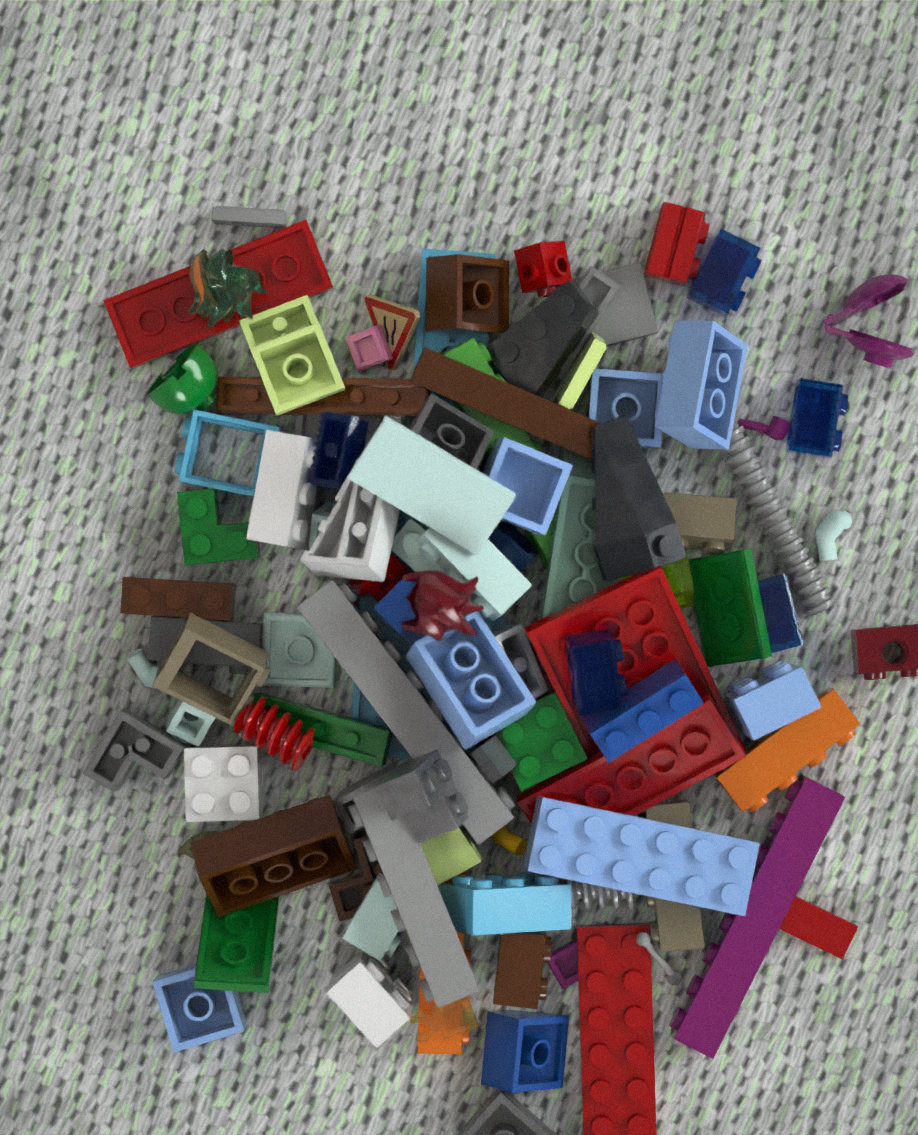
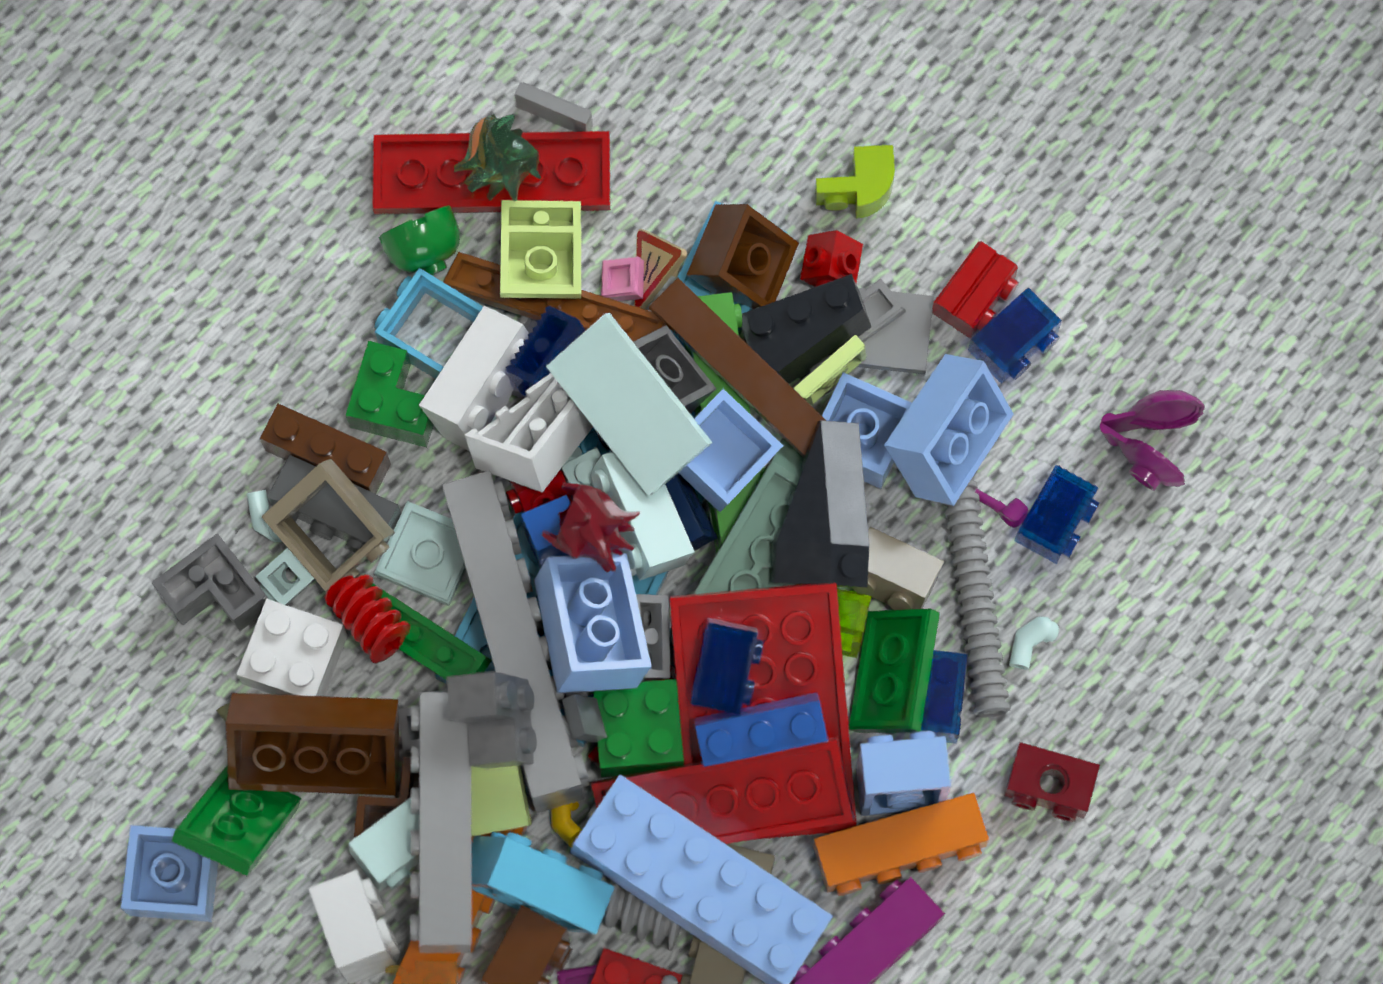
camera: 15 degrees right, 15 degrees down
(550, 180) = (867, 188): none -> lime brick

